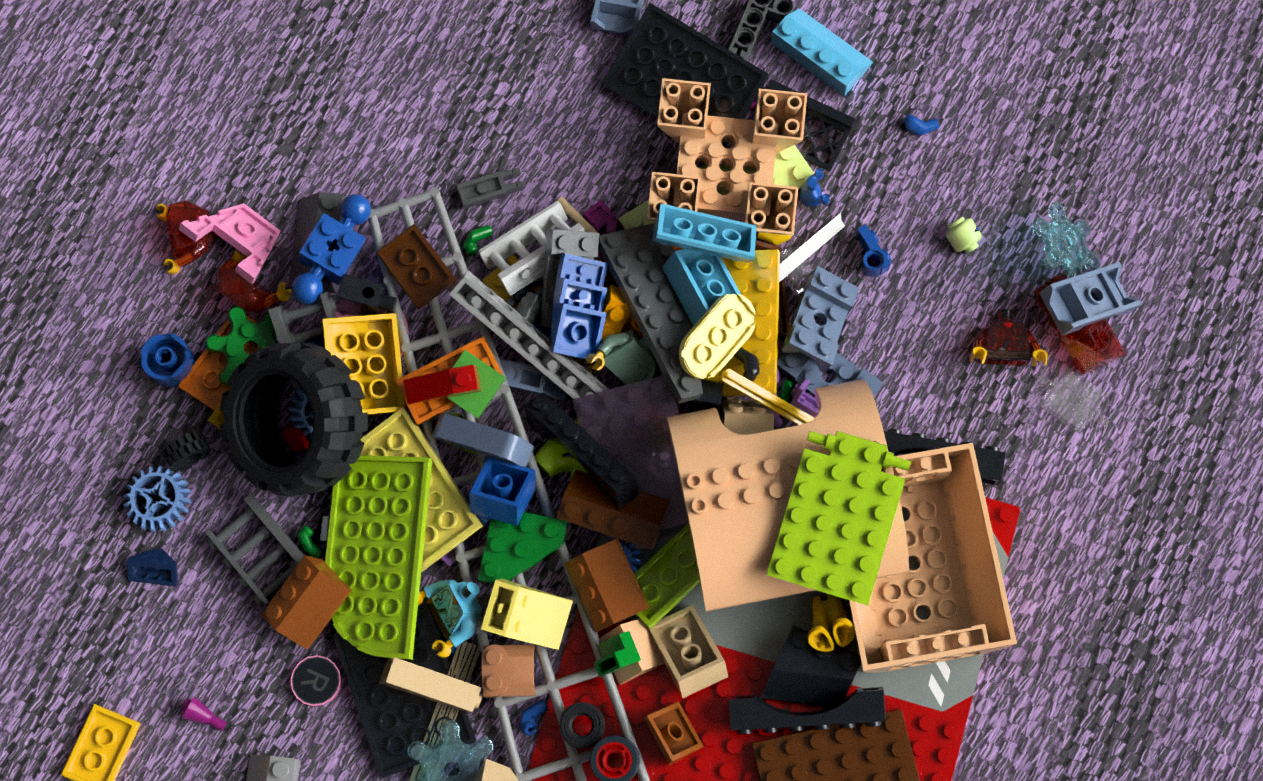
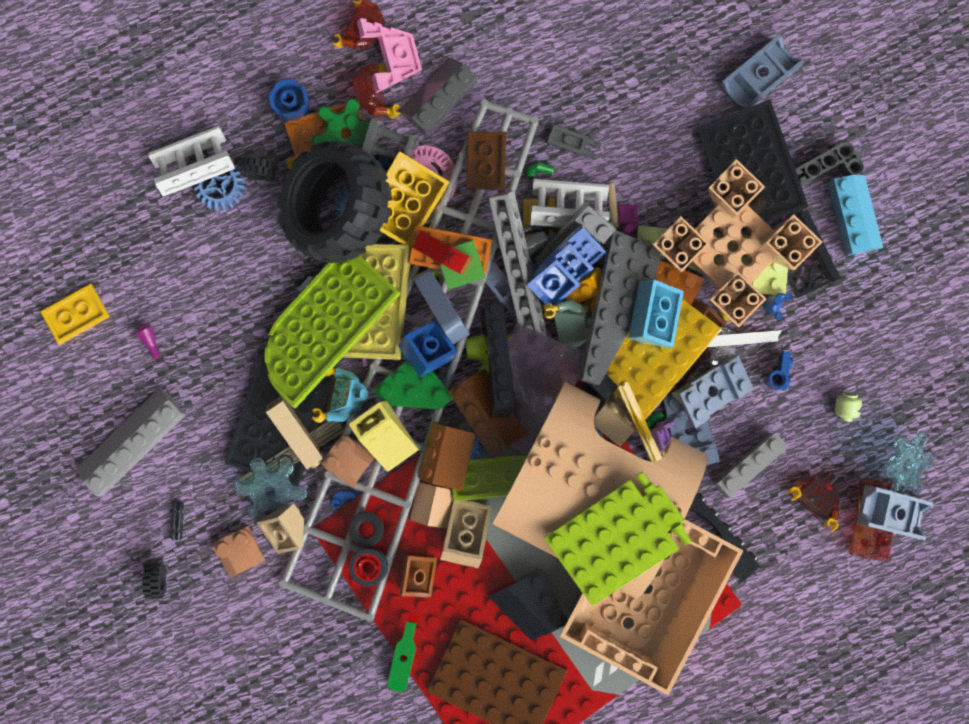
camera: 30 degrees right, 10 degrees up
(122, 504) = (195, 172): none -> white fence
(153, 568) = (186, 226): dark blue slope -> none
(268, 529) = (273, 257): dark grey fence -> none
(295, 438) = (329, 213): red slope -> none
(306, 601) = (259, 321): dark orange slope -> none
(307, 544) = (289, 285): green arm -> none
(316, 680) = (231, 373): black tile -> none
(330, 233) = (447, 96): blue brick -> none
(363, 297) = (434, 150): black torso -> none
(617, 654) = (421, 503): green piece -> none
(705, 233) = (682, 283): medium azure slope -> none
(717, 336) = (637, 355): light yellow tile -> none
(750, 363) = (645, 387): black arm -> none
(824, 615) = (551, 592): yellow piece -> none
(862, 706) = (542, 652): black arch -> none
(915, 363) = (750, 465): none -> light grey brick
(918, 126) = (877, 313): blue arm -> none
(1073, 400) = (830, 564): clear plate -> none

